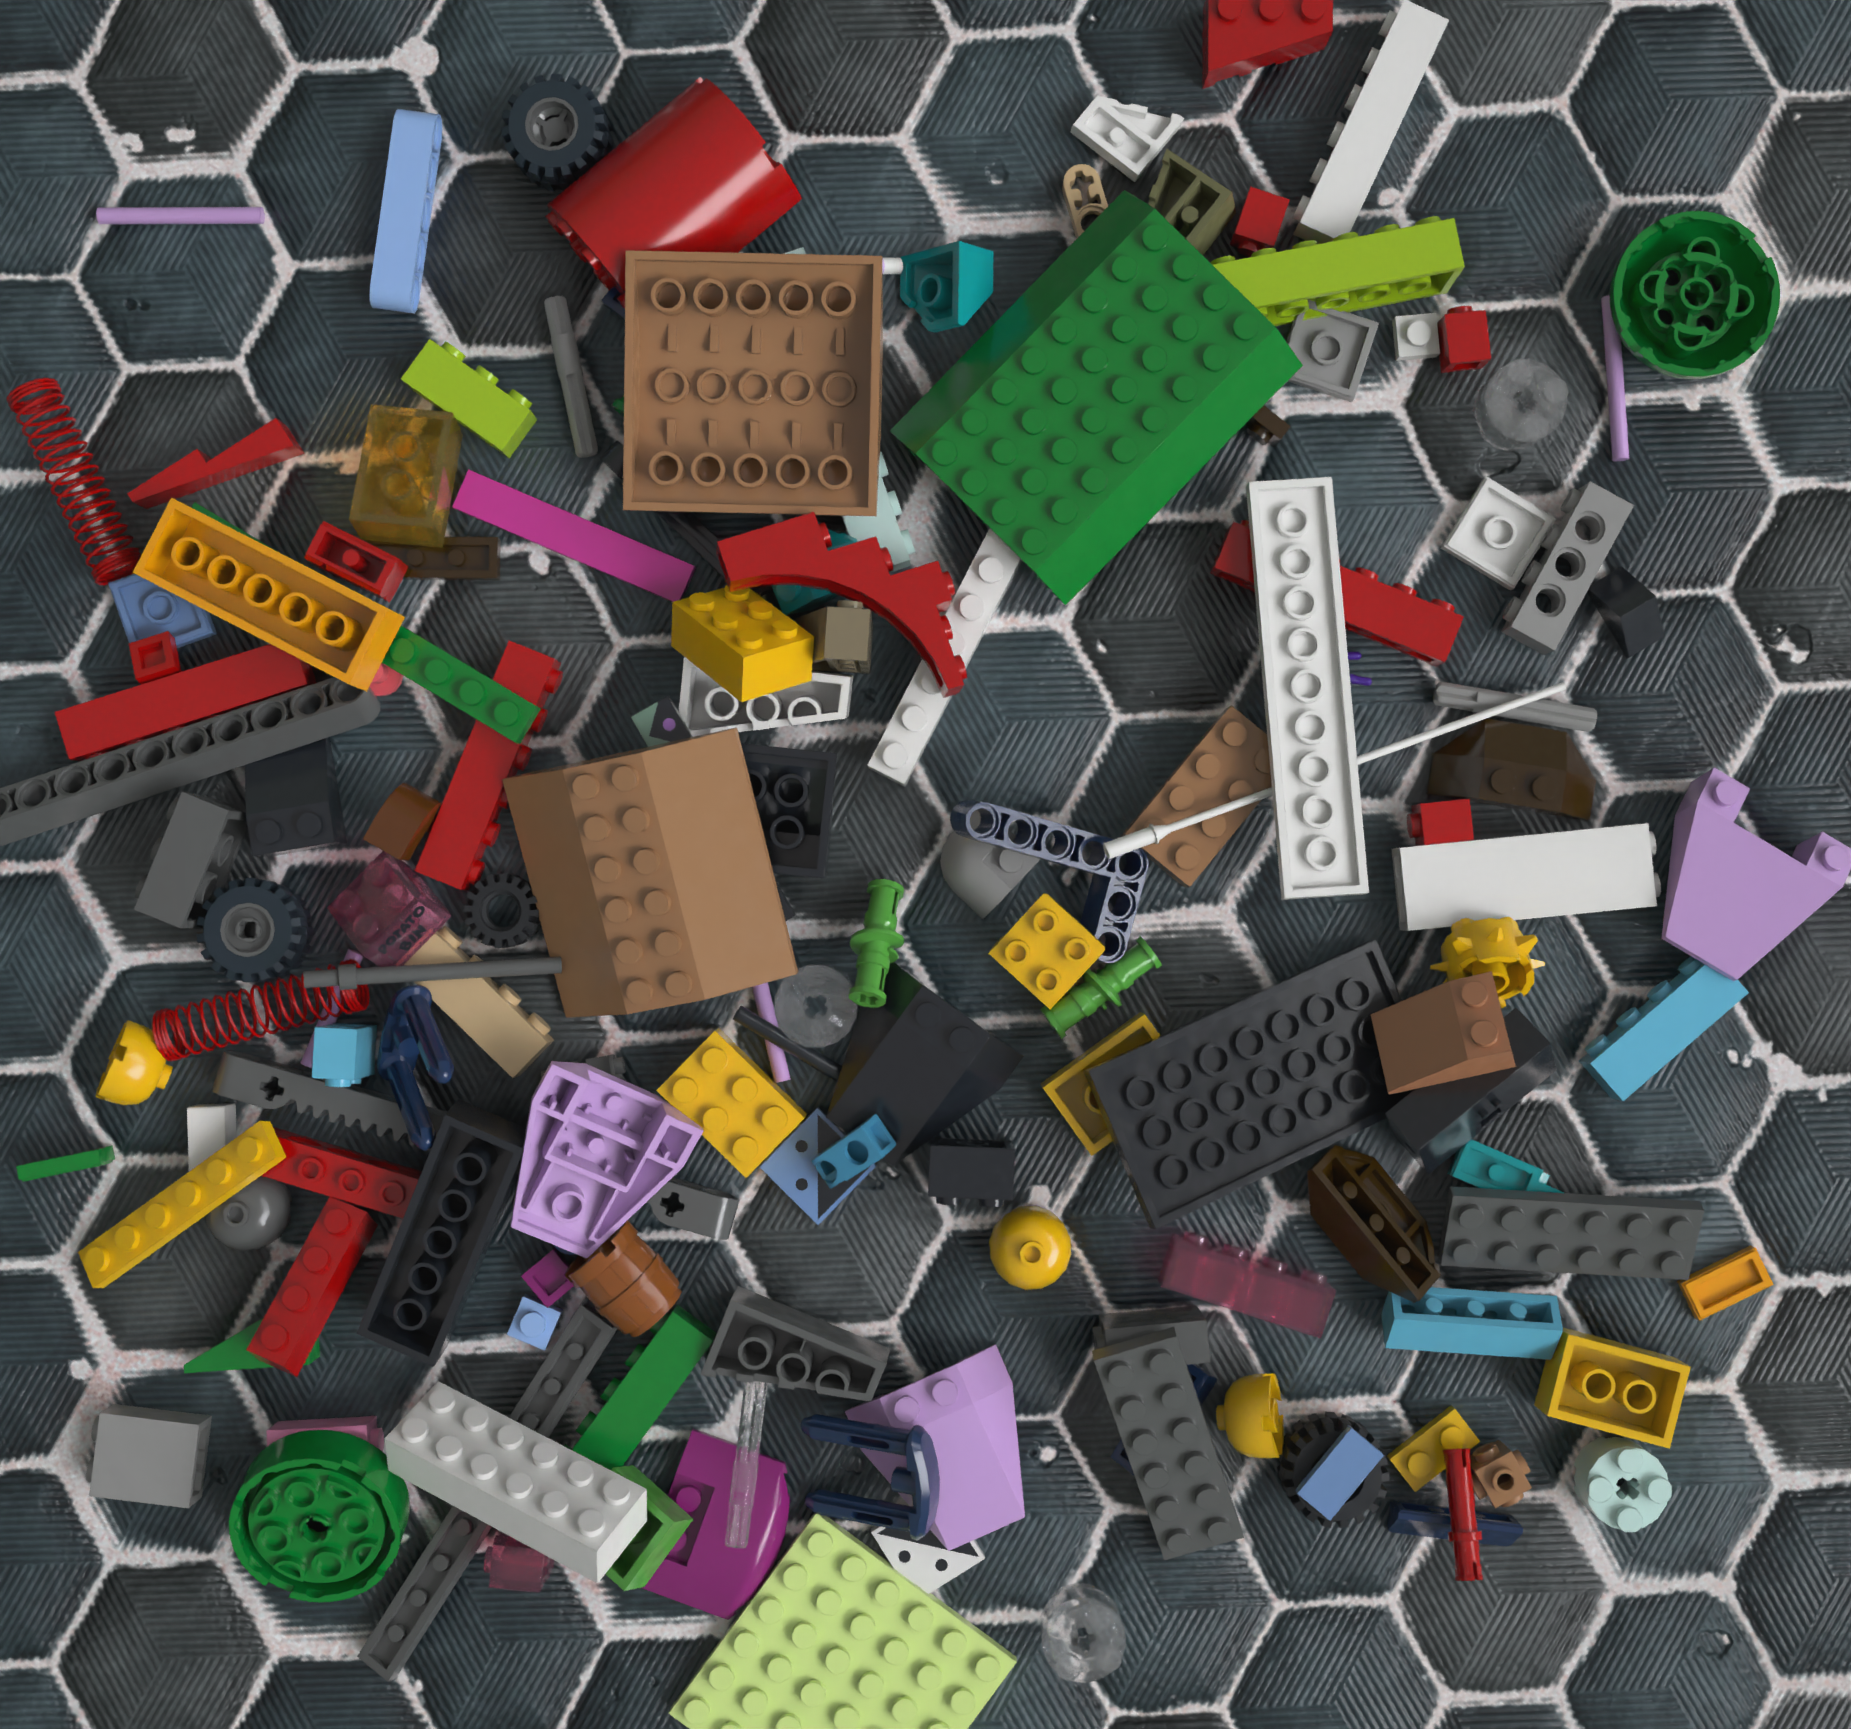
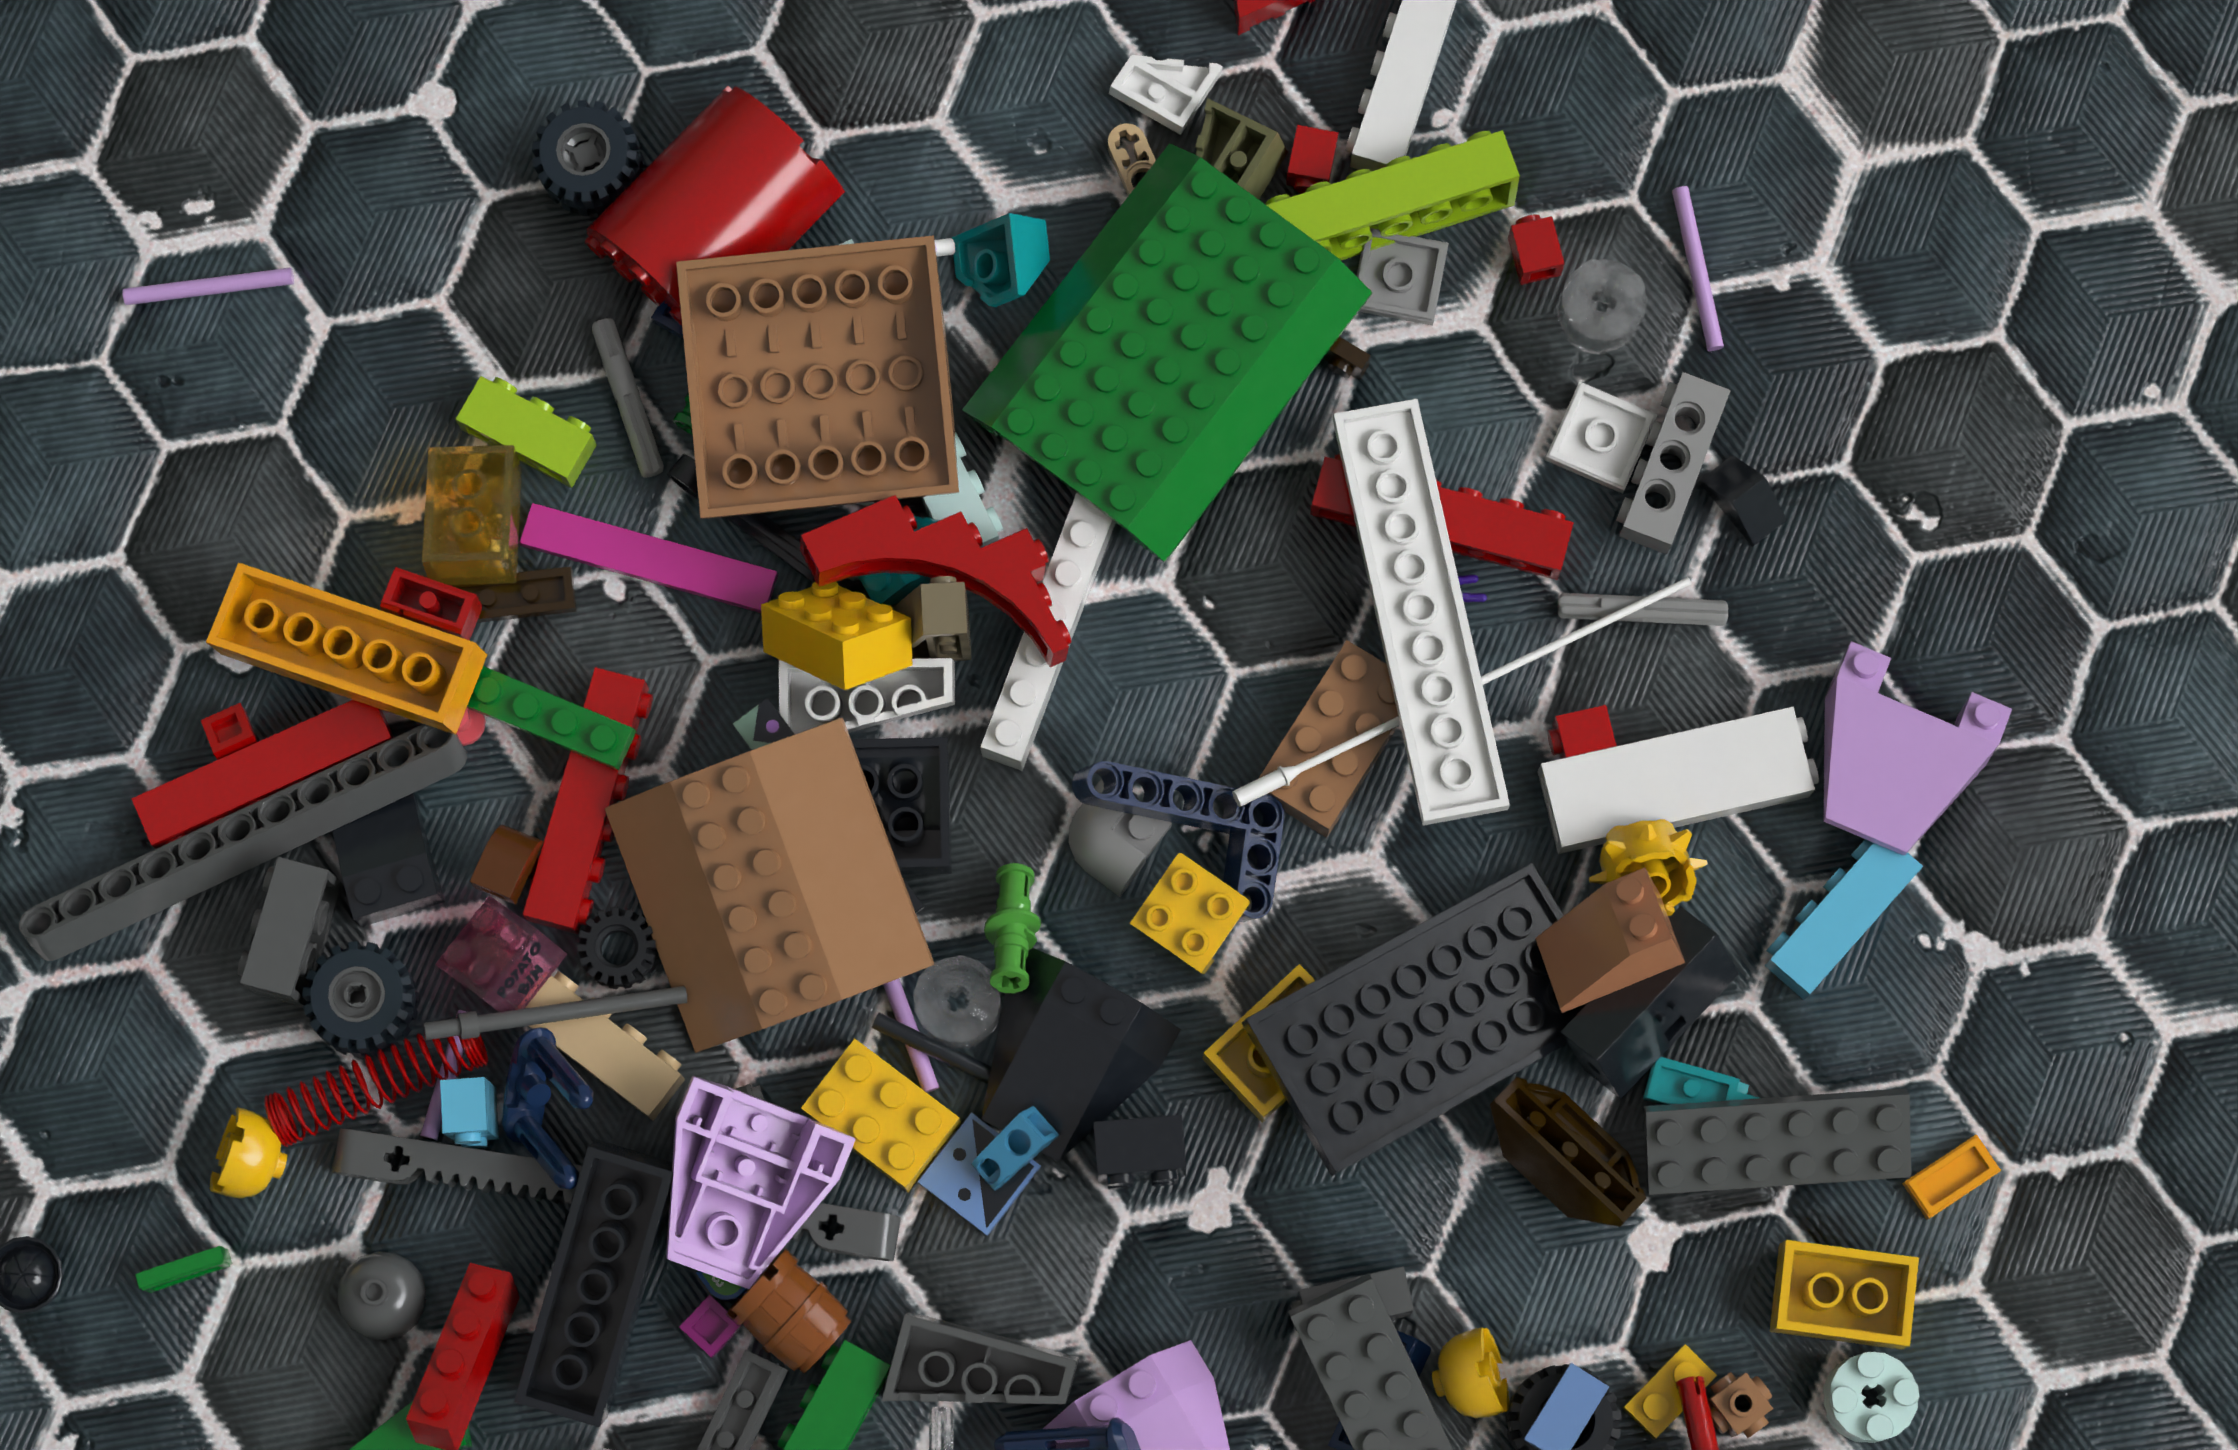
camera: 10 degrees left, 10 degrees down
(101, 571) = (78, 494): red piece -> none
(153, 610) = (218, 682): medium blue tile -> none
(182, 1204) = (313, 1292): yellow plate -> none
(198, 471) = (251, 540): red slope -> none
(209, 1130) = (335, 1222): white piece -> none
(344, 1174) = (470, 1240): red brick -> none
(406, 211) = (440, 254): light blue beam -> none
(534, 1322) = (698, 1378): light blue plate -> none
(1030, 1247) = (1214, 1232): yellow cylinder -> none
(1101, 987) = (1252, 947): bright green piece -> none
(1247, 1285) = (1447, 1239): clear pink brick -> none
(1415, 336) = (1488, 252): white plate -> none
(1474, 1323) = (1676, 1249): medium azure brick -> none
(1514, 769) = (1653, 673): dark brown wedge -> none
(1695, 248) = (1758, 130): green brick -> none

